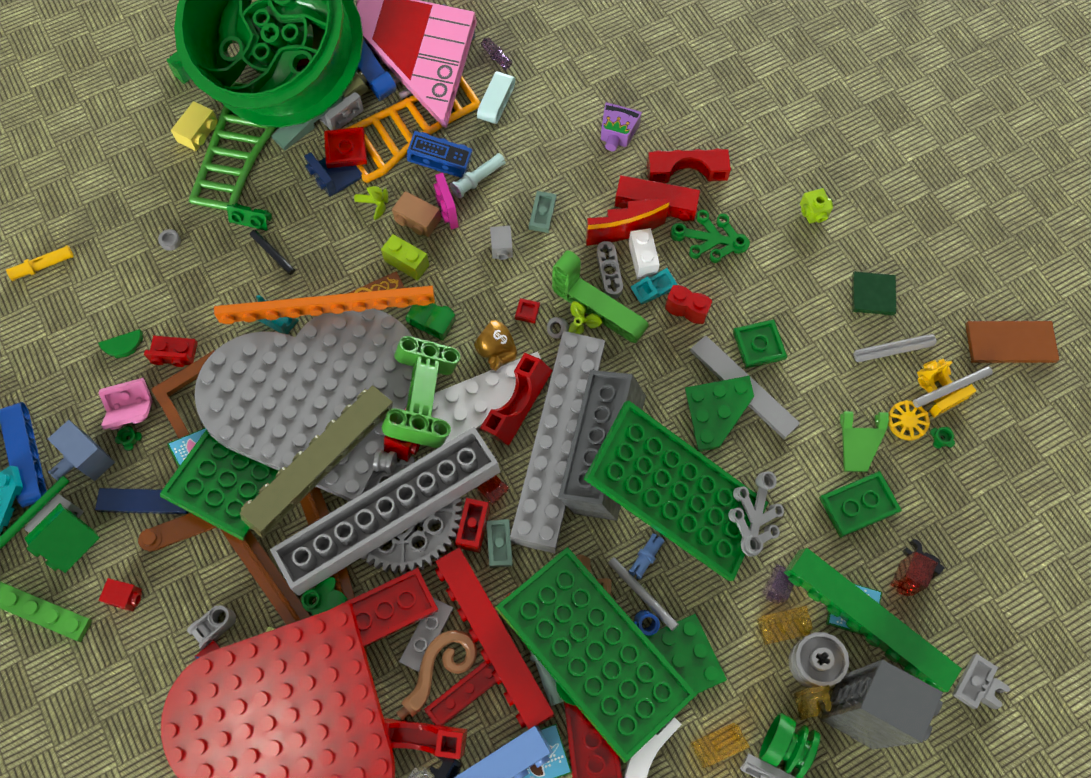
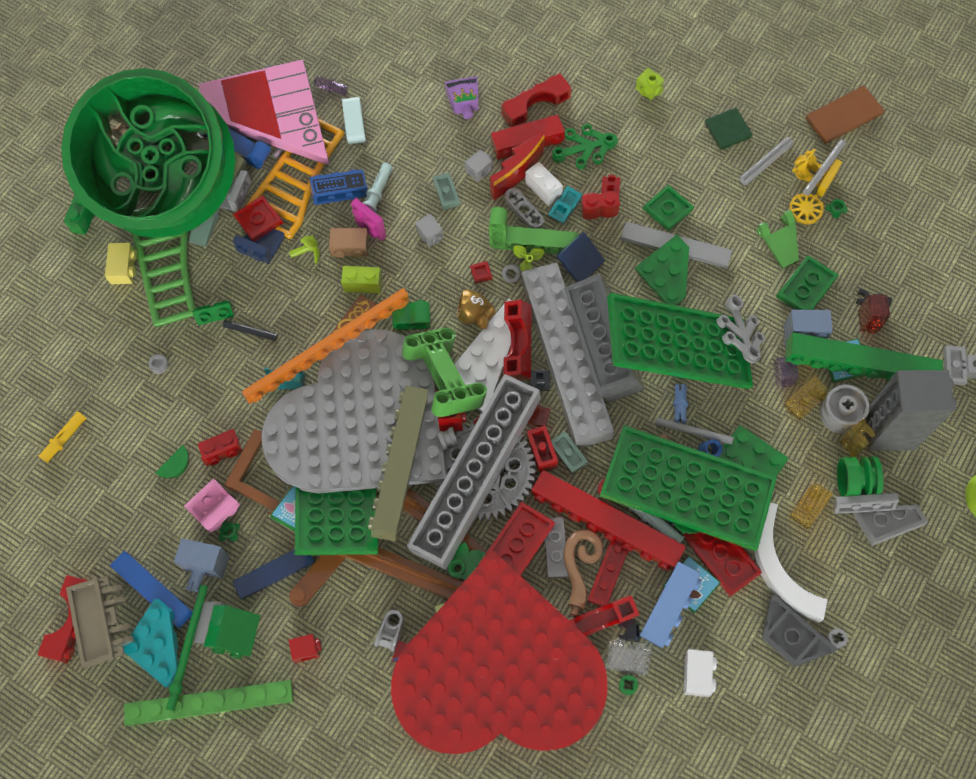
camera: 25 degrees left, 0 degrees up
(517, 453) = (540, 380): none -> black tile
(591, 202) = (479, 165): none -> light grey brick
(634, 348) = (580, 258): none -> dark blue tile
(713, 289) = (610, 183): none -> red tile
(833, 547) = (809, 322): none -> sand blue brick

